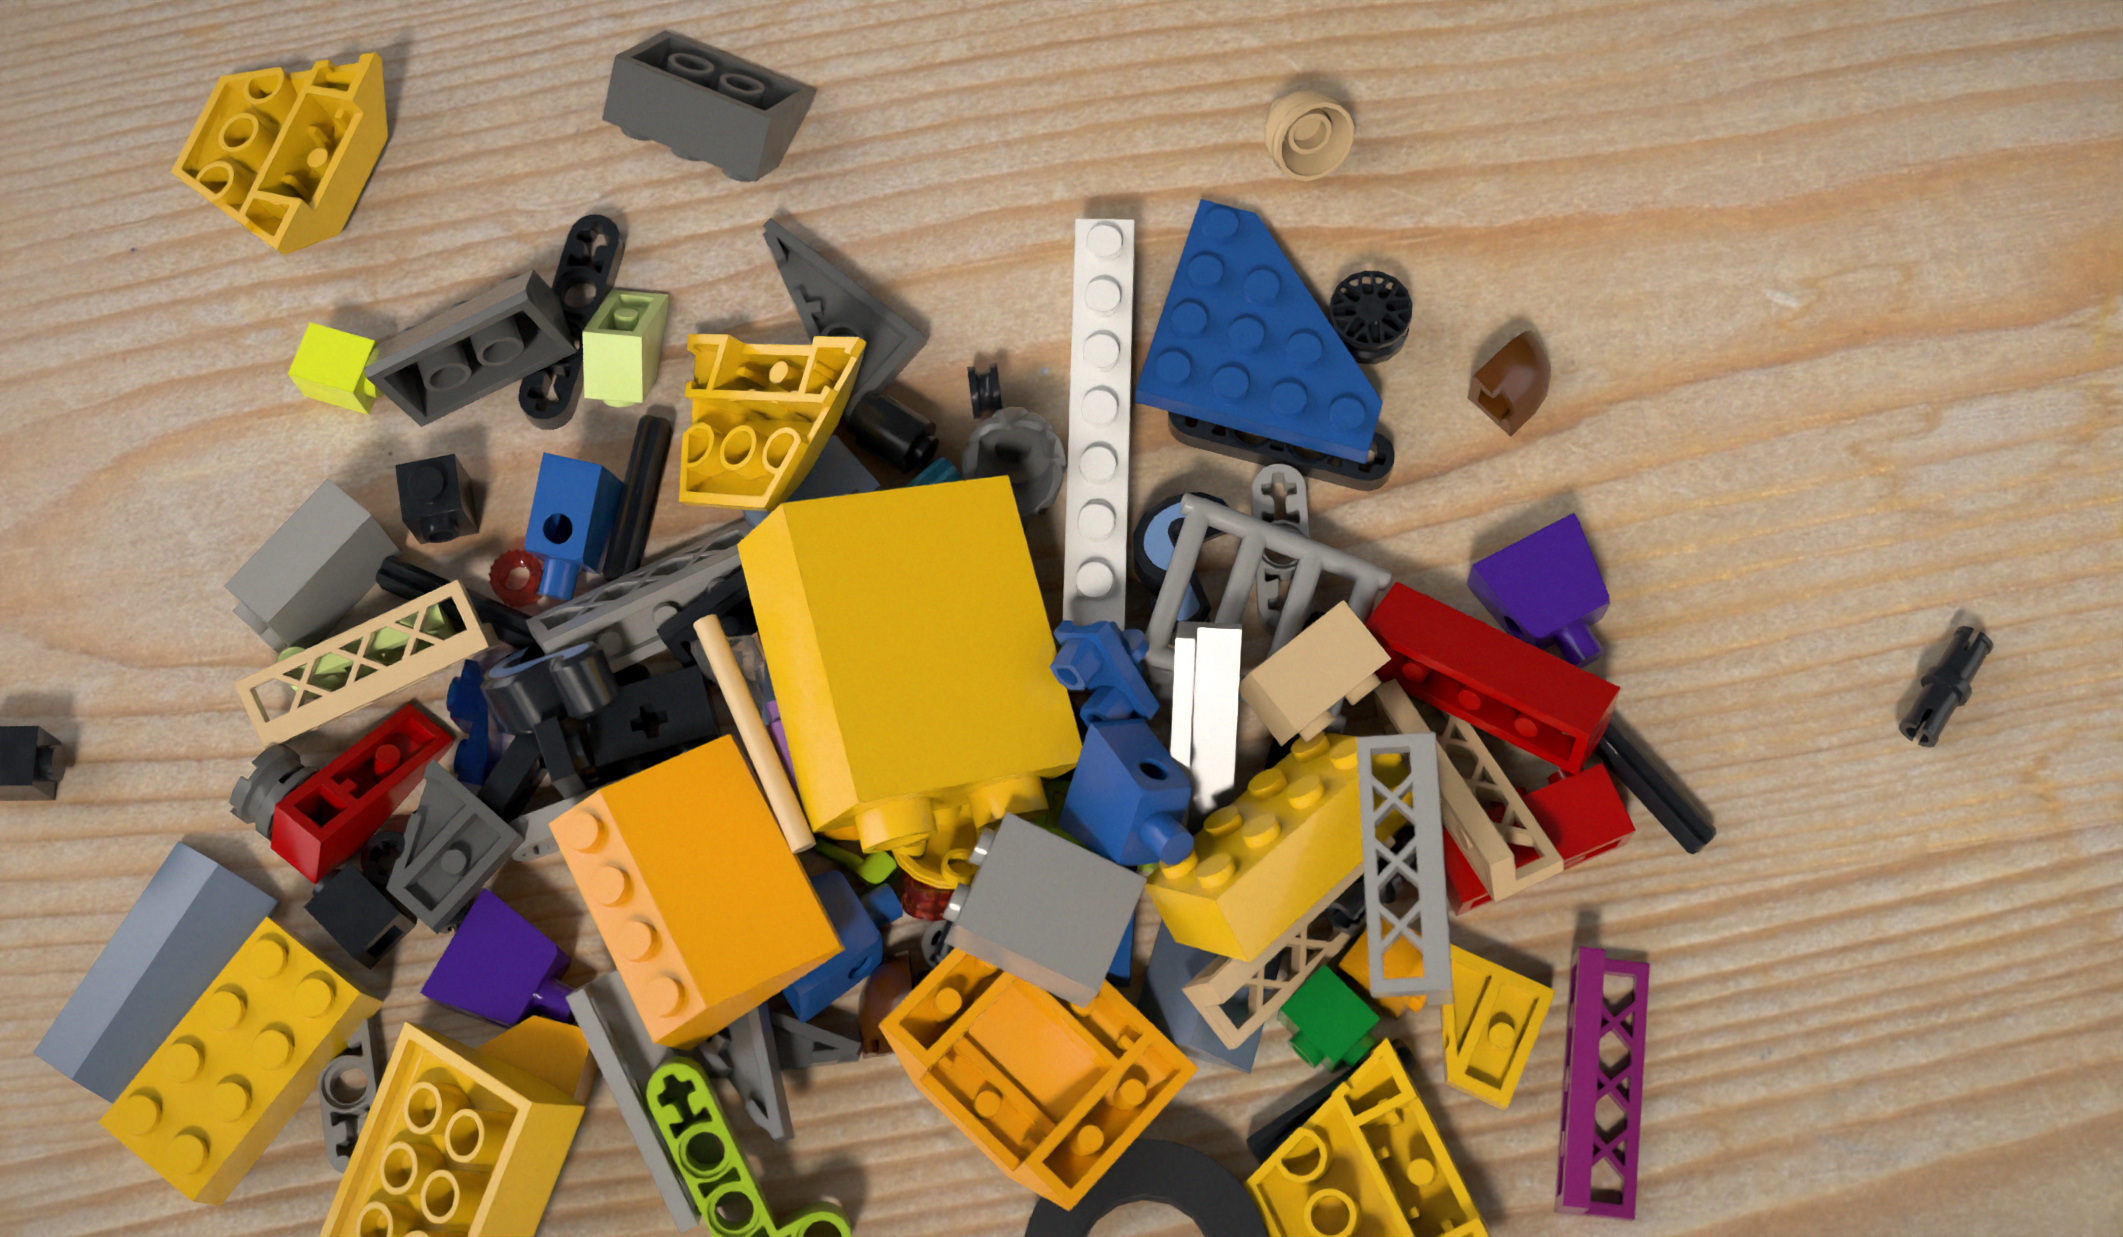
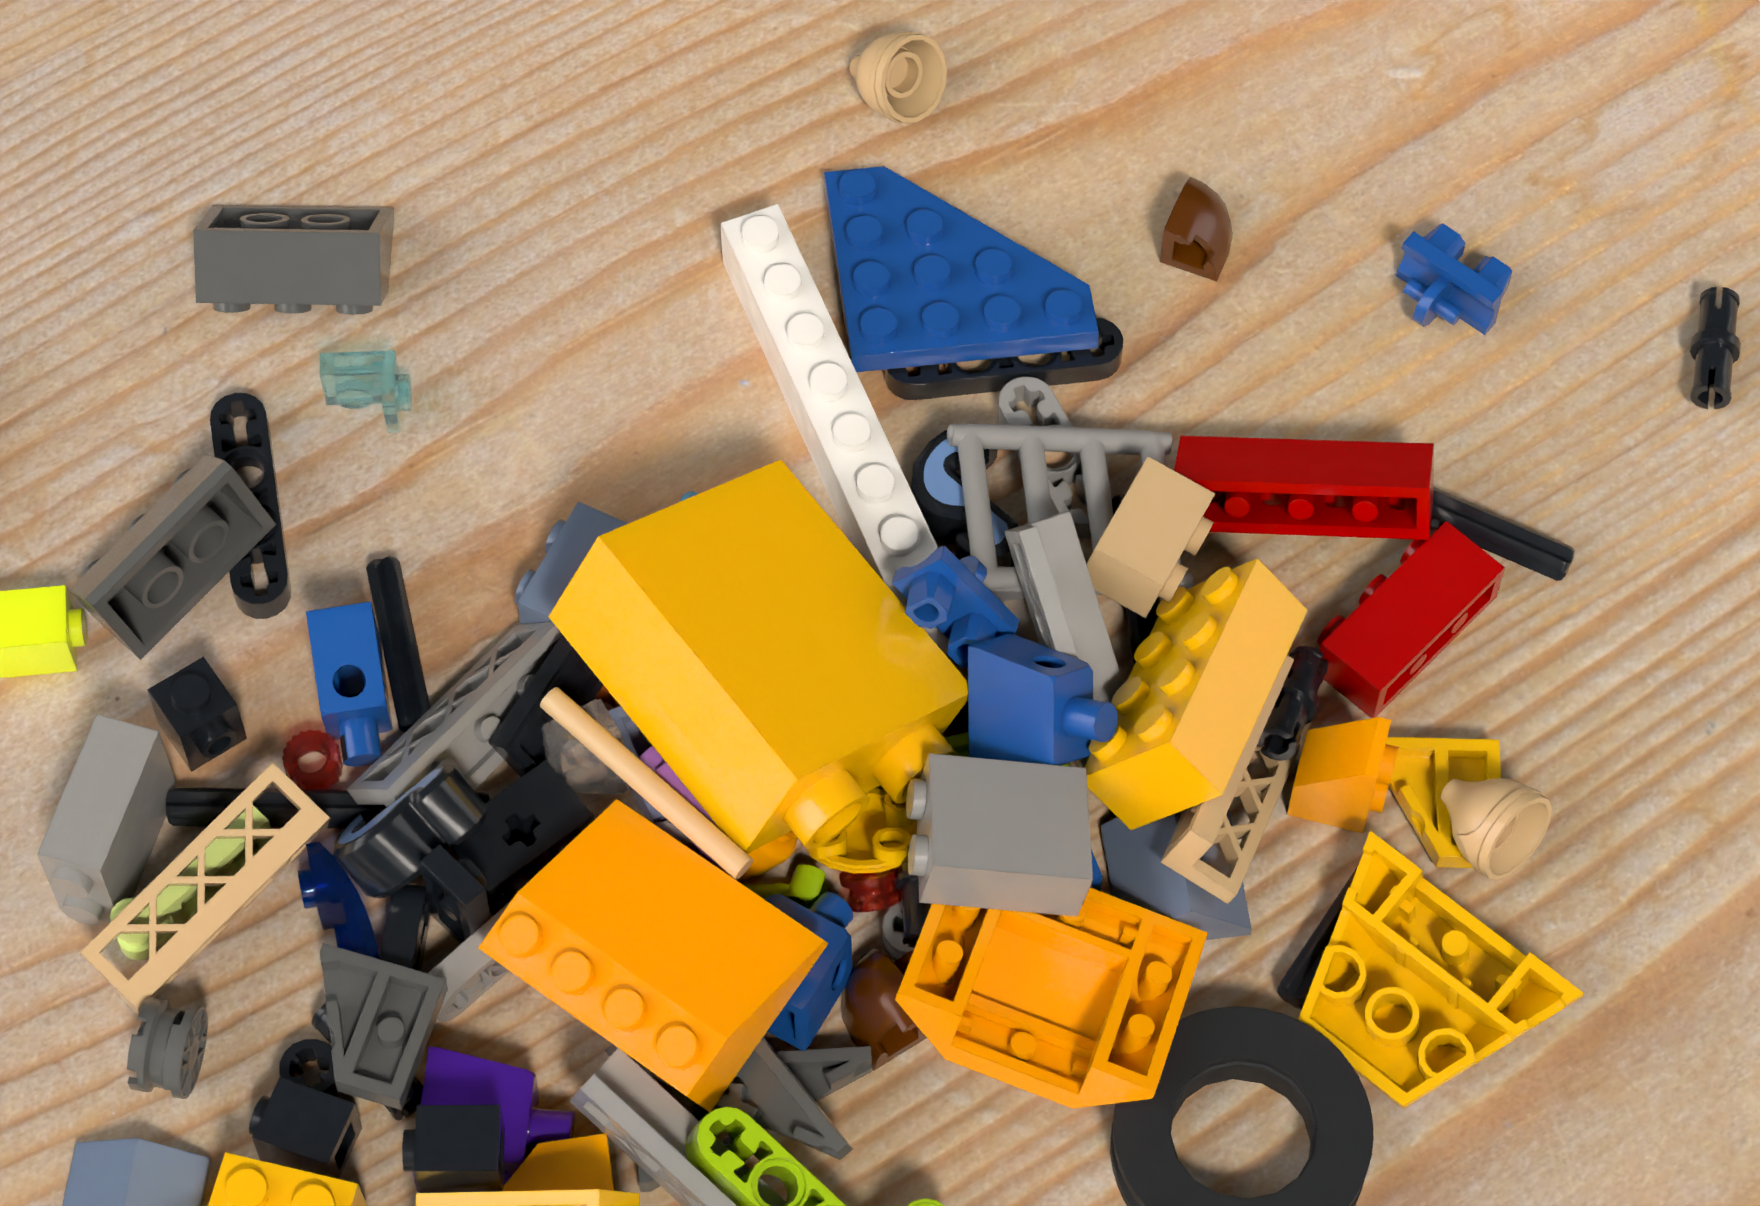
camera: 30 degrees left, 10 degrees down
(355, 793) = (246, 1021): red slope -> none
(454, 998) = (456, 1148): none -> black brick
(624, 347) = (321, 507): yellowish green slope -> none
(711, 243) = (365, 379): none -> clear light blue bracket
(761, 417) = (496, 512): yellow wedge -> none
(839, 307) = (539, 411): dark grey wing -> none
(893, 432) = (628, 485): black brick -> none
(984, 390) = (700, 416): black bush -> none
(1023, 449) = (765, 435): dark grey hair -> none
(1328, 1022) = (1304, 850): green brick -> none
(1371, 317) = (1050, 208): black wheel -> none
(1430, 879) = (1336, 644): light grey fence -> none
(1462, 815) = (1343, 592): tan fence -> none
(1506, 1077) = (1496, 823): none -> tan helmet
(1546, 590) = (1317, 392): dark purple torso -> none
(1580, 1085) = (1568, 834): magenta fence -> none
(1716, 530) = (1448, 286): none -> blue hips

